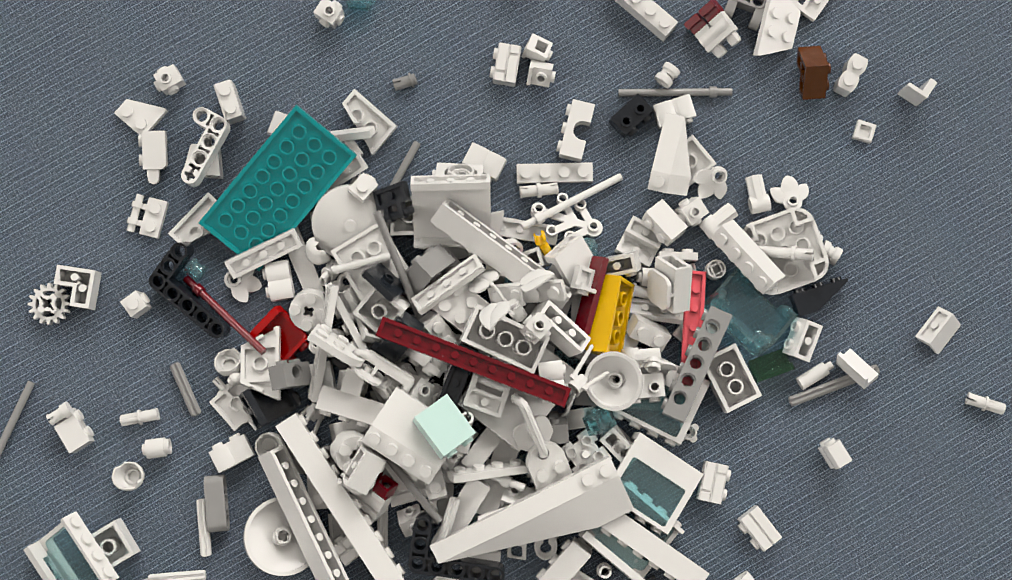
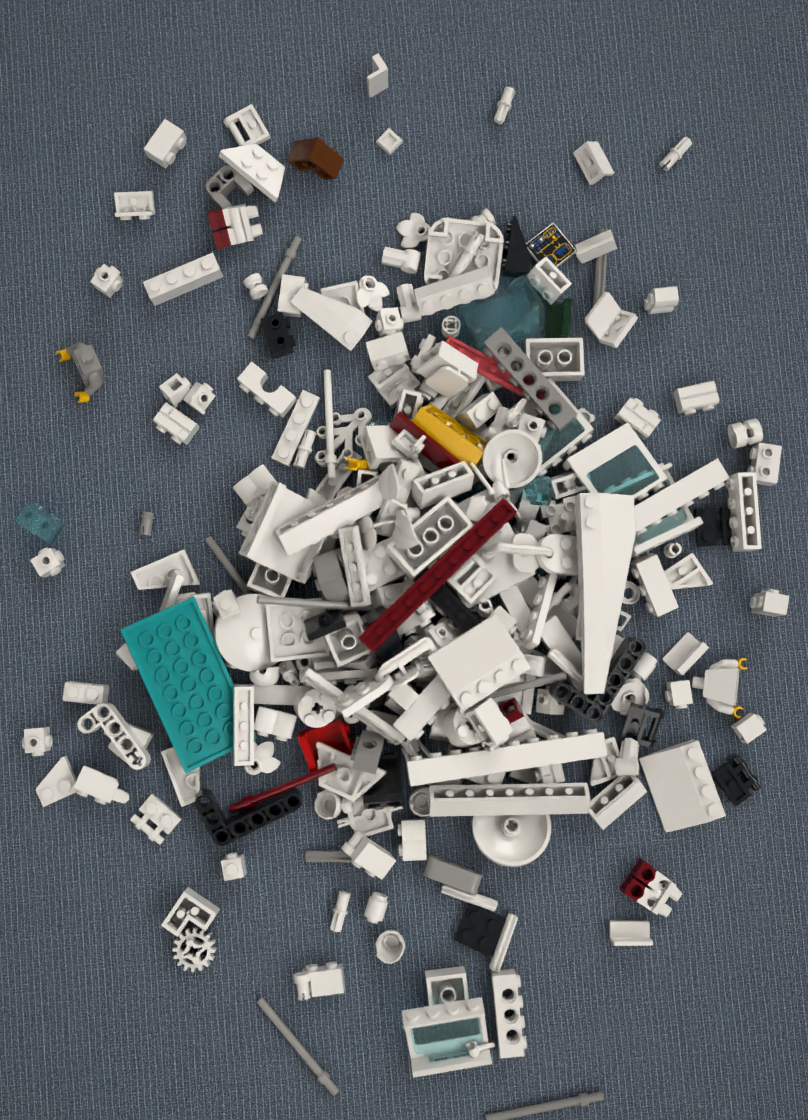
camera: 70 degrees left, 0 degrees up
(179, 550) = (479, 929): none -> black plate
(195, 269) = (227, 796): clear light blue wheel -> none
(199, 419) = (368, 855): none -> white hinge
(361, 263) = (296, 638): white bar -> none
(392, 196) = (248, 578): black plate -> none
(444, 427) = (486, 628): light aqua brick -> none
(536, 328) = (434, 501): white brick -> none
(791, 413) = (609, 321): none -> white bracket
(814, 374) = (583, 286): white cylinder -> none
(838, 327) = (550, 244): none -> black tile
(850, 75) = (334, 127): white brick -> none
(951, 221) = (504, 105): none -> white axle

